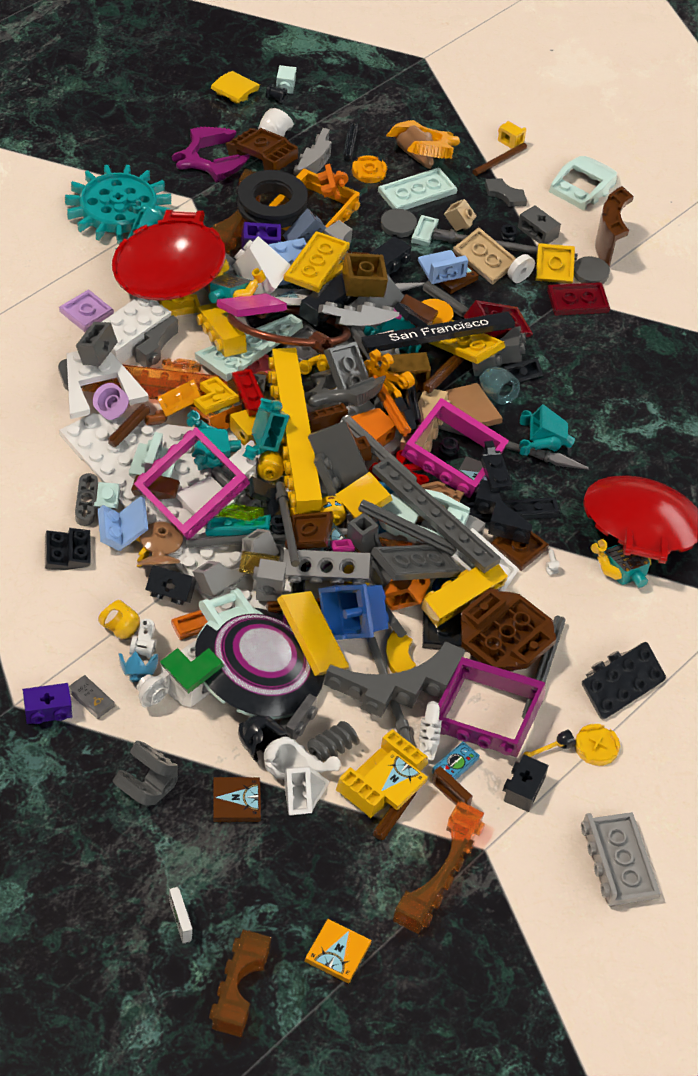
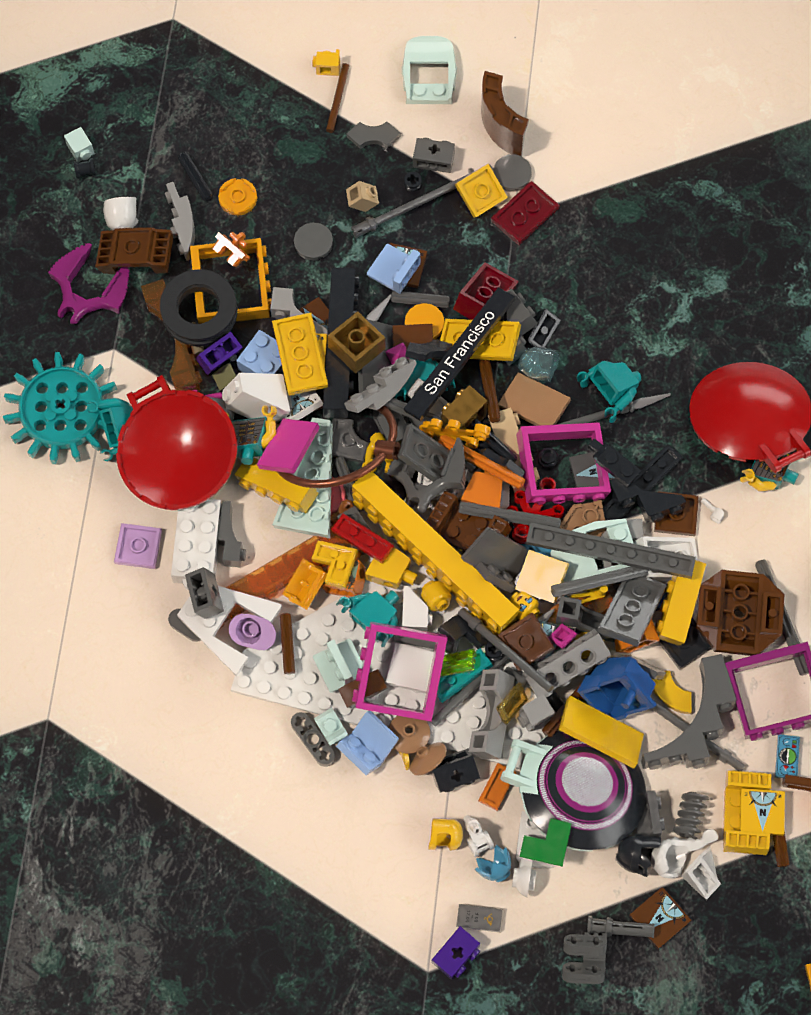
camera: 30 degrees left, 20 degrees up
(67, 549) = (341, 799): black slope -> none
(156, 419) = (301, 616): dark orange arm -> none
(181, 365) = (273, 547): clear orange tile -> none
(188, 773) = (619, 928): none -> dark grey pin
(234, 87) = (41, 188): yellow slope -> none
(267, 428) = (416, 569): teal torso -> none
(304, 227) = (251, 318): sand blue hinge -> none
(392, 539) = (595, 593): none -> yellow piece
(413, 134) = (263, 140): medium nougat hat -> none
(417, 189) = (297, 189): light aqua tile -> none
(424, 230) = (341, 233): light aqua tile -> none
(430, 730) = (754, 748): white hinge -> none
(440, 146) = (285, 138): light orange piece -> none
(485, 255) = (417, 225): tan tile -> none
(521, 268) = (459, 219): white piece -> none

